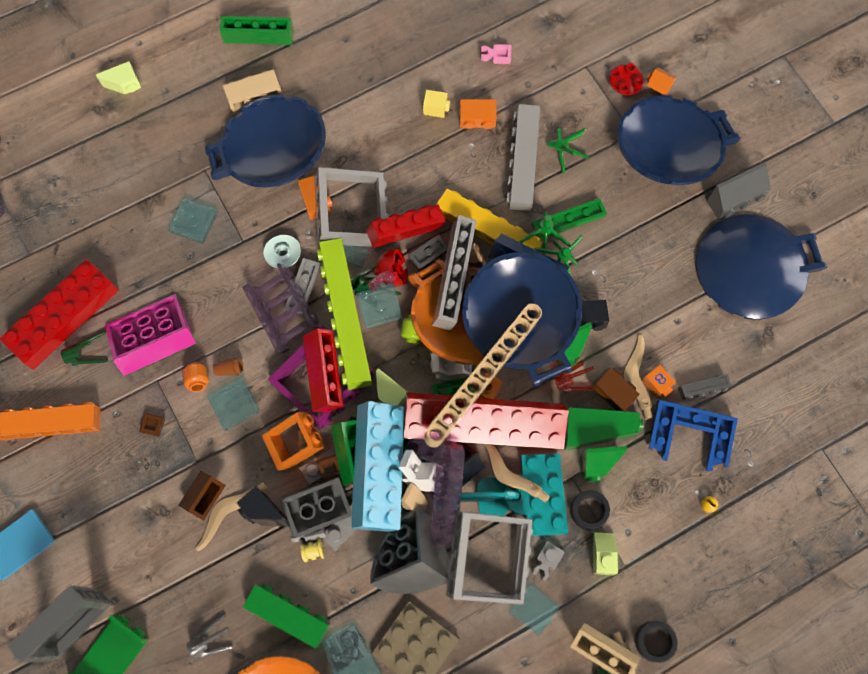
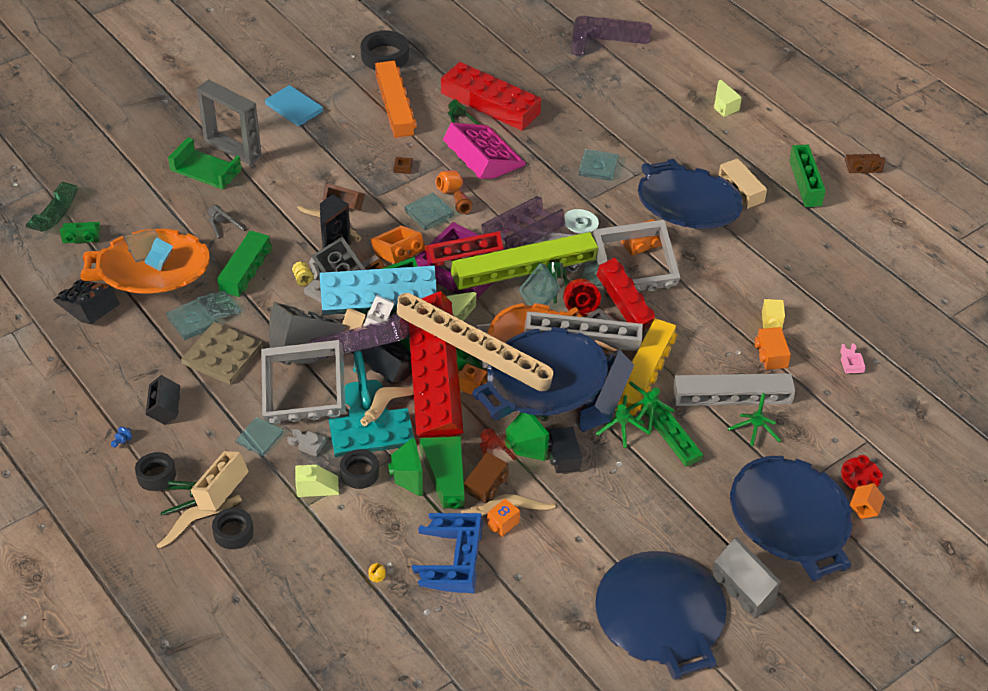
camera: 80 degrees right, 25 degrees down
(379, 279) = (564, 280): clear pink arm -> none
(706, 386) = (505, 562): dark grey piece -> none

